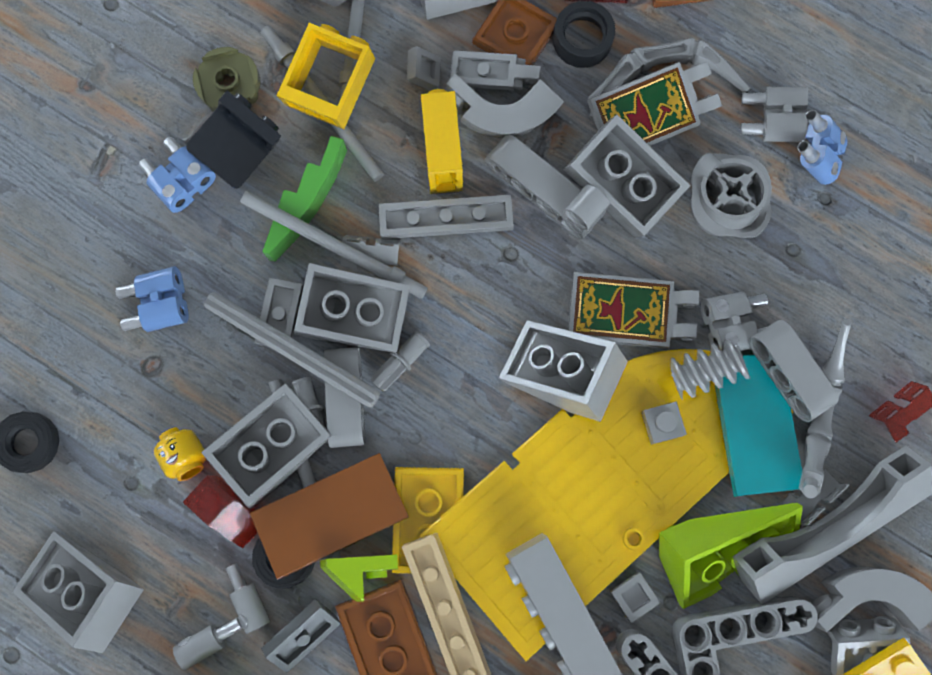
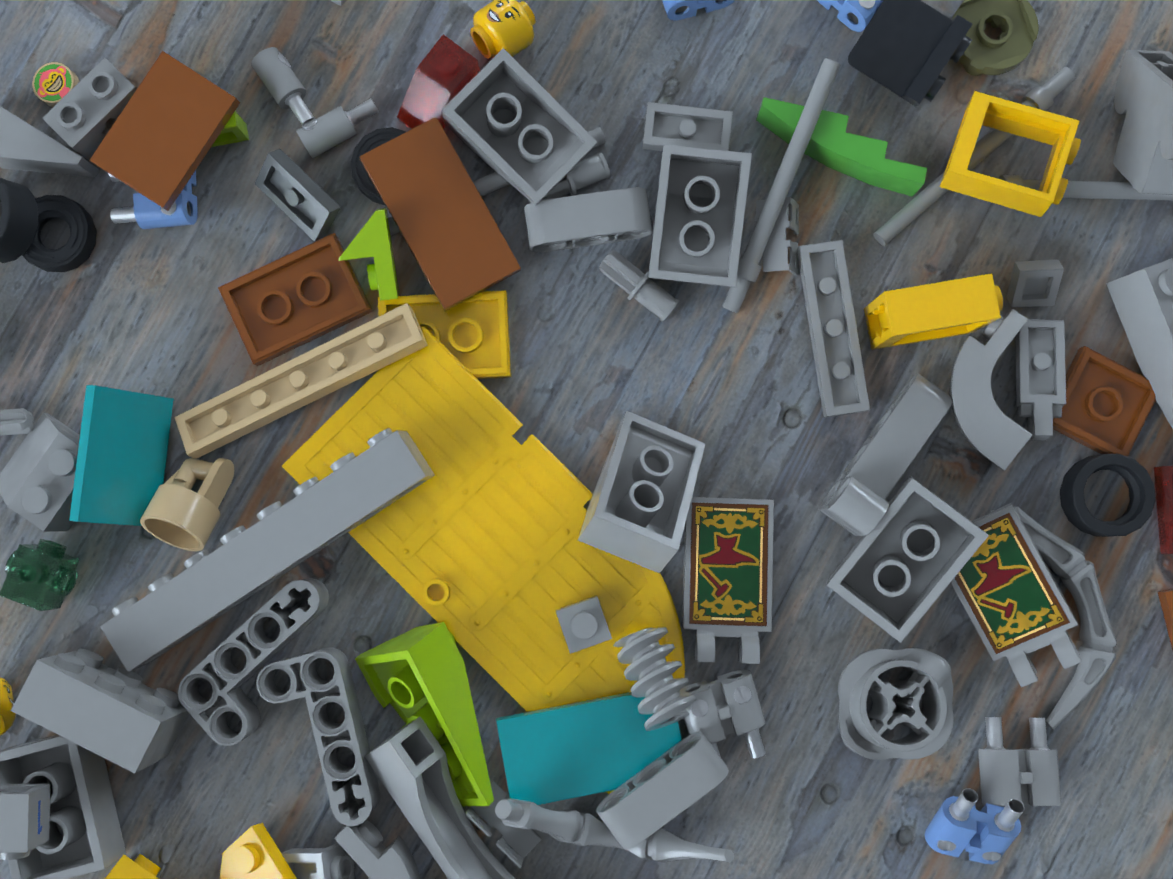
camera: 90 degrees right, 5 degrees up
(292, 349) = (640, 147): light grey axle -> none
(634, 597) = (365, 596): light grey plate -> none

